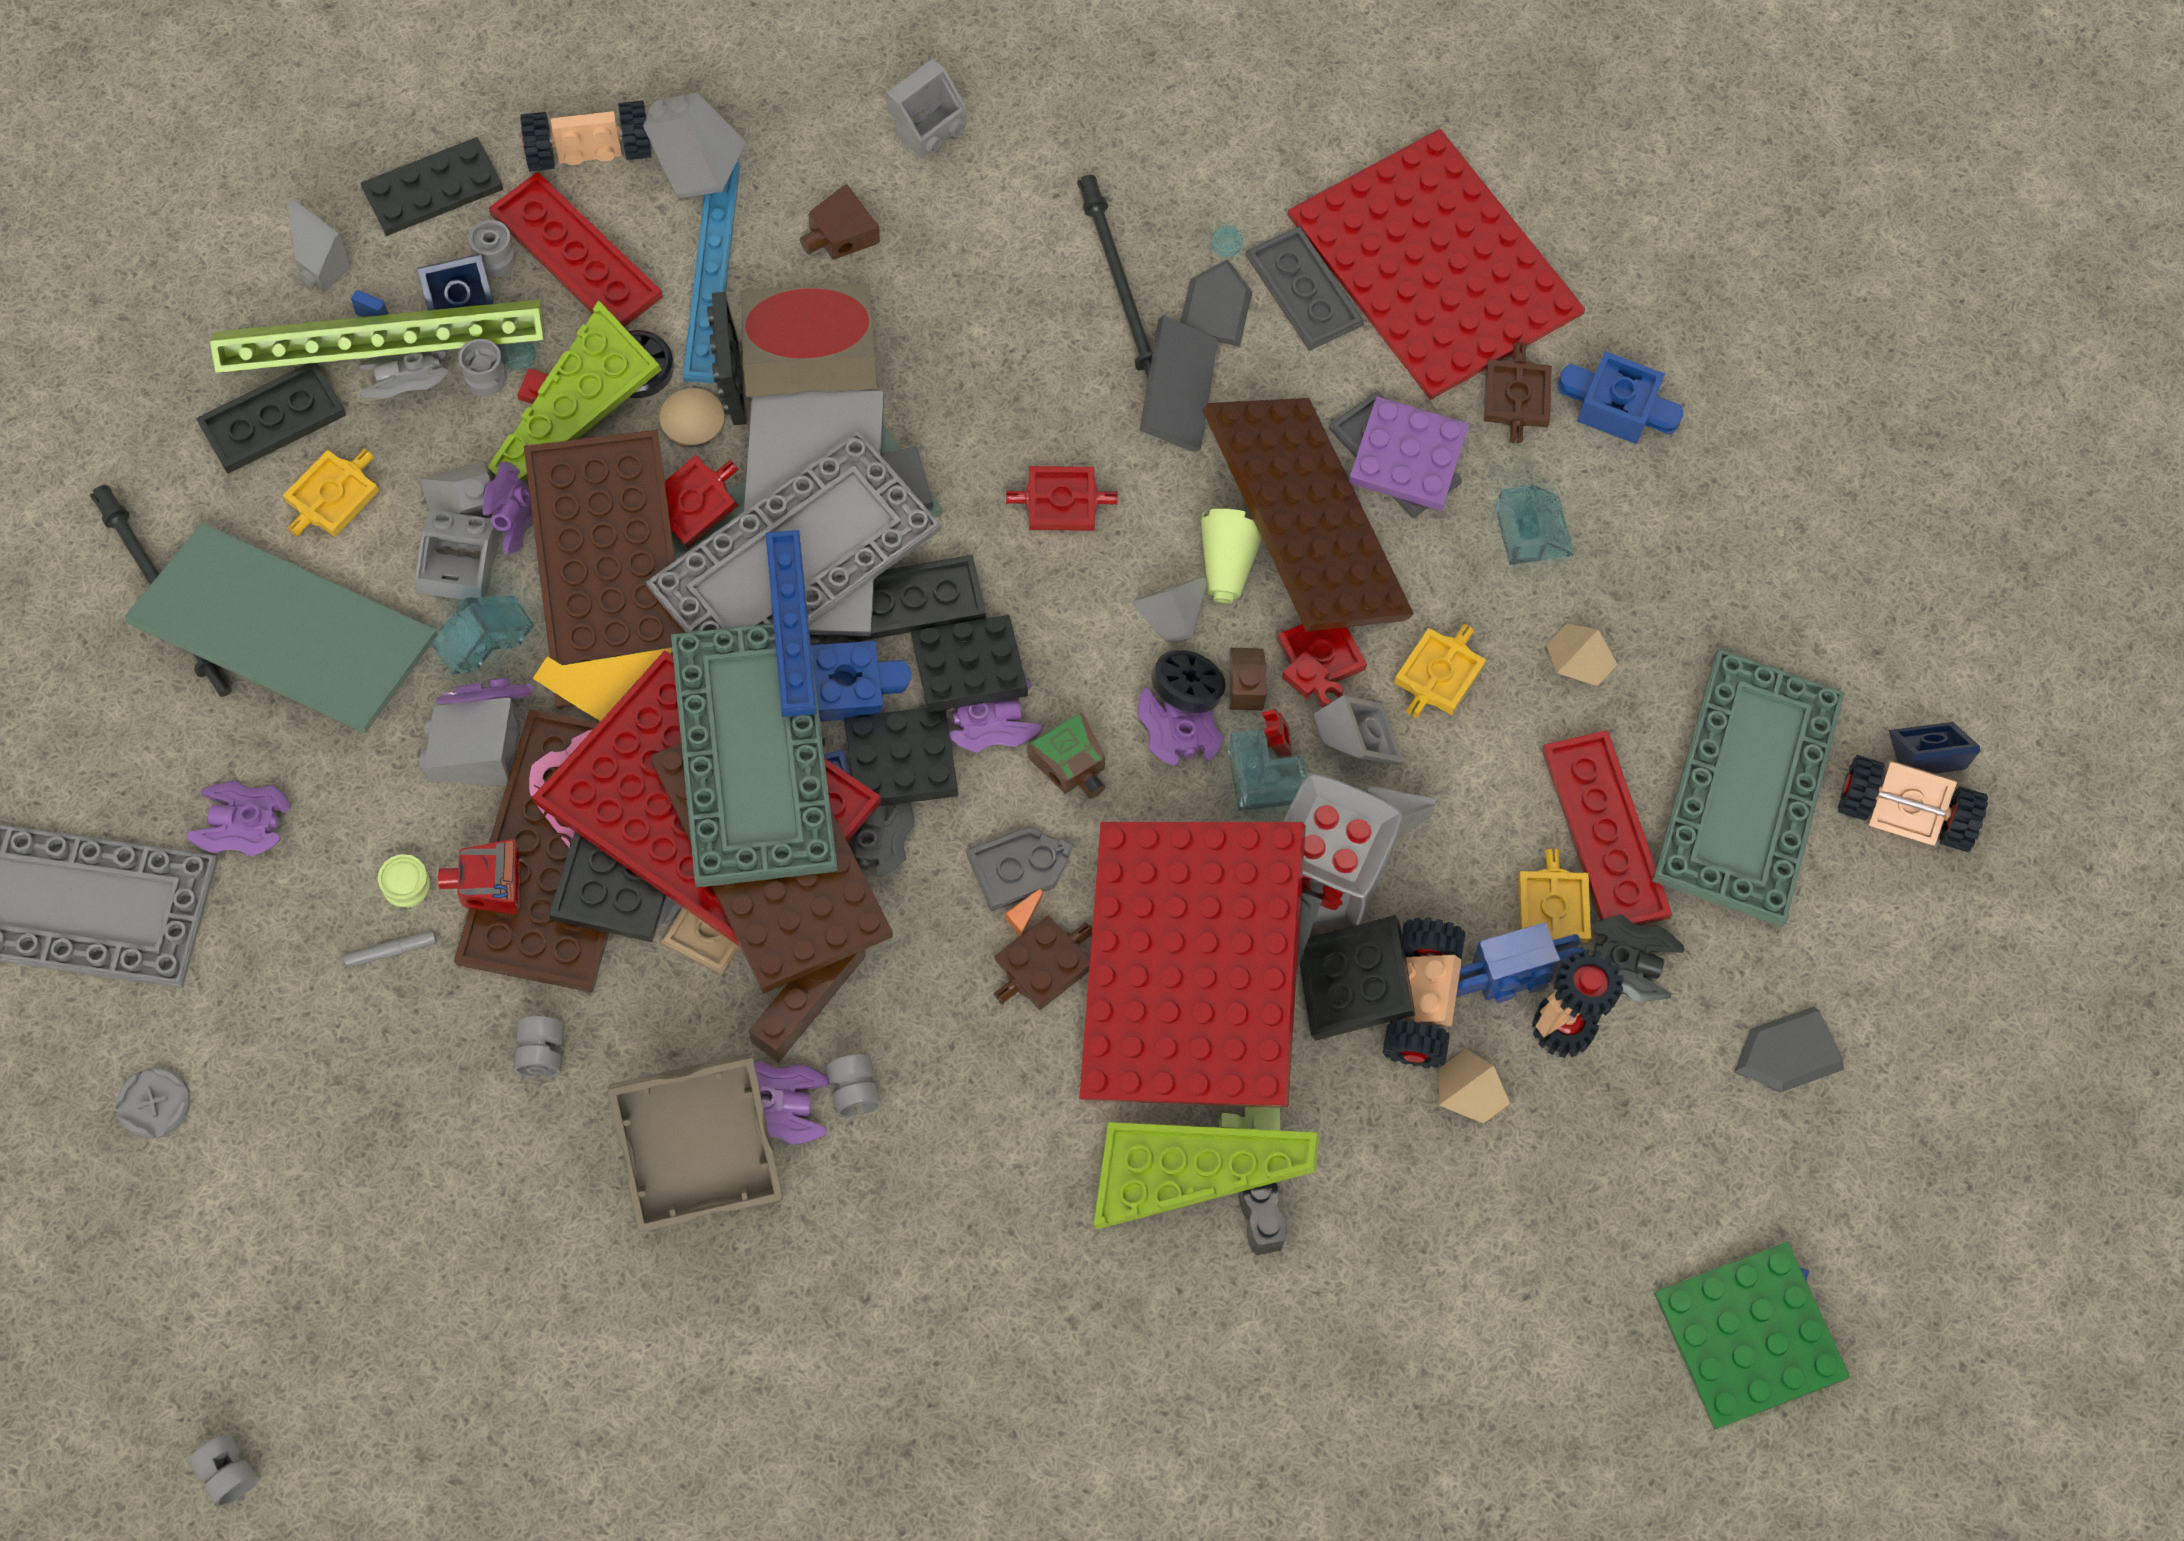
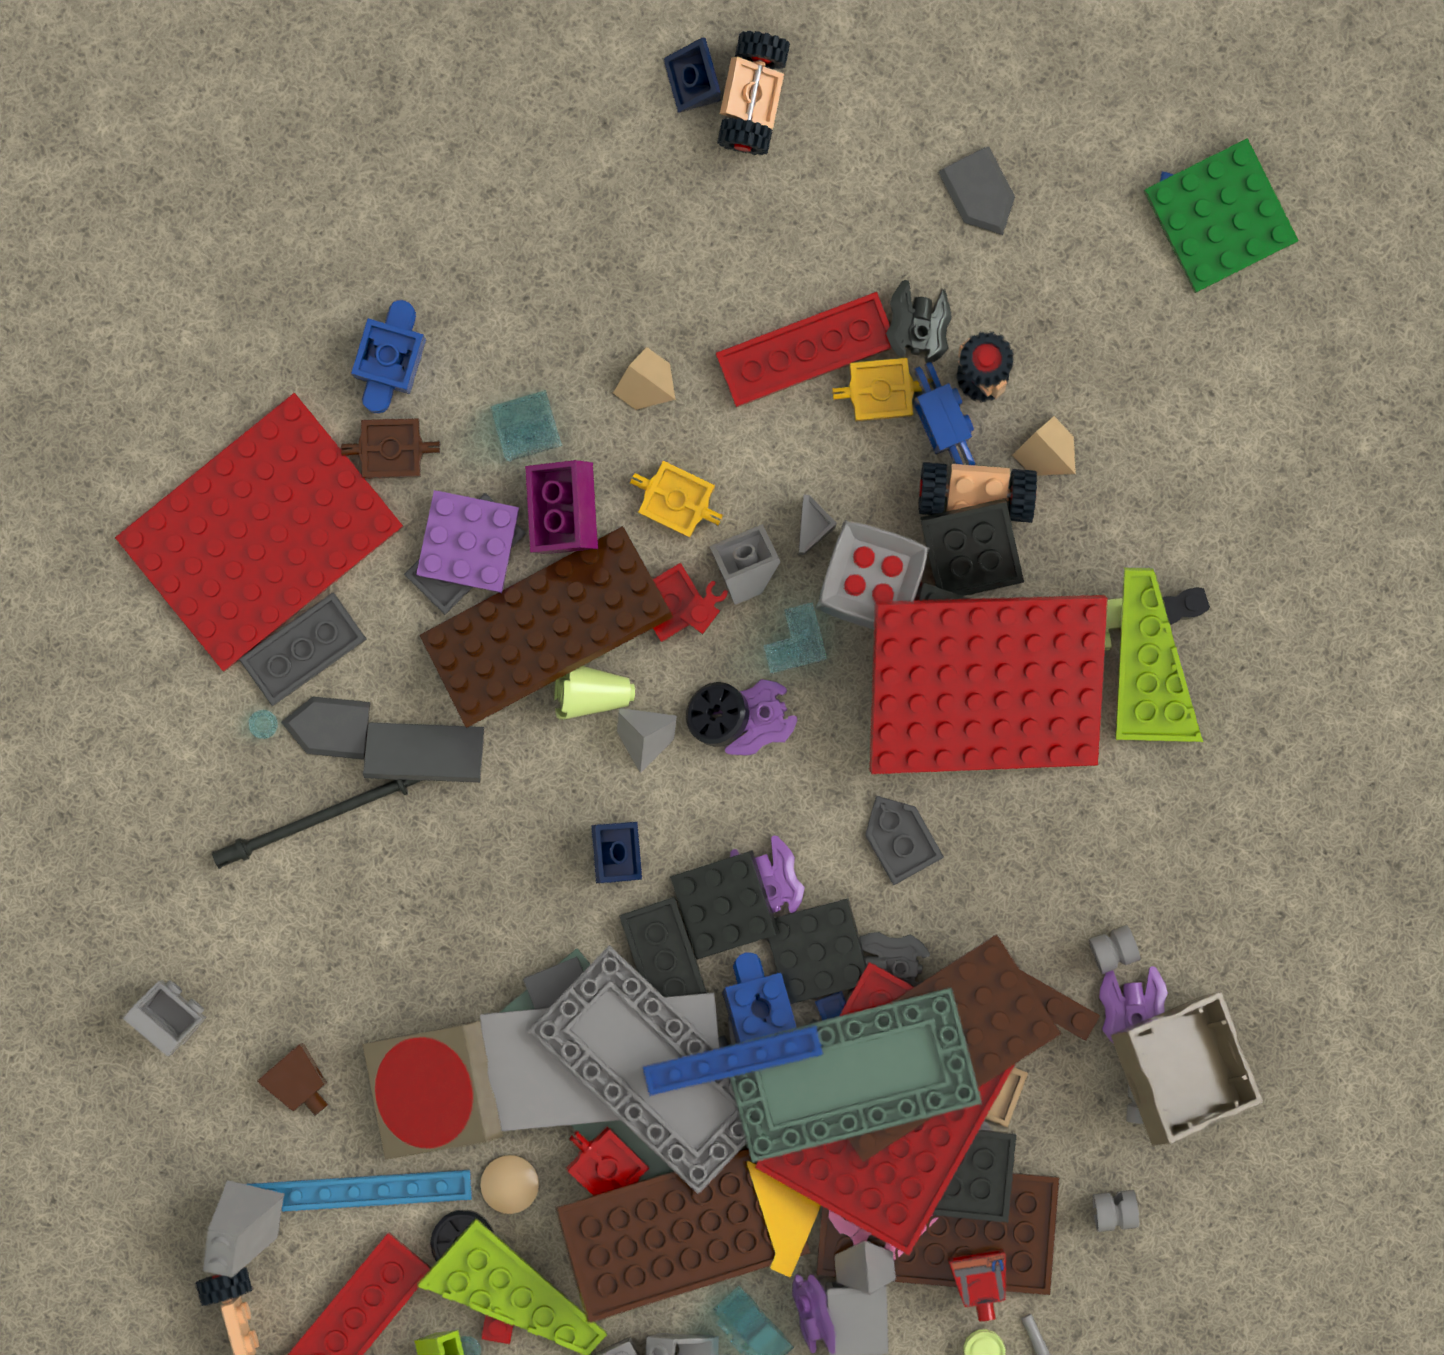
camera: 90 degrees left, 20 degrees up
(511, 506) = (634, 1328): medium lavender piece -> none
(526, 753) = (865, 1267): none -> light grey slope
(727, 369) = (464, 1160): pearl dark grey plate -> none
(1021, 914) = (944, 830): orange piece -> none
(1043, 962) = (984, 808): reddish brown plate -> none
(1044, 558) = (616, 852): none -> dark blue slope
(1061, 498) = (550, 844): red plate -> none
(1070, 756) = (800, 806): torso -> none
(1247, 679) = (702, 664): reddish brown slope -> none
(1277, 733) = (756, 633): red plate -> none
(1440, 544) = (561, 507): none -> magenta brick
(1749, 788) = (749, 230): sand green tile -> none

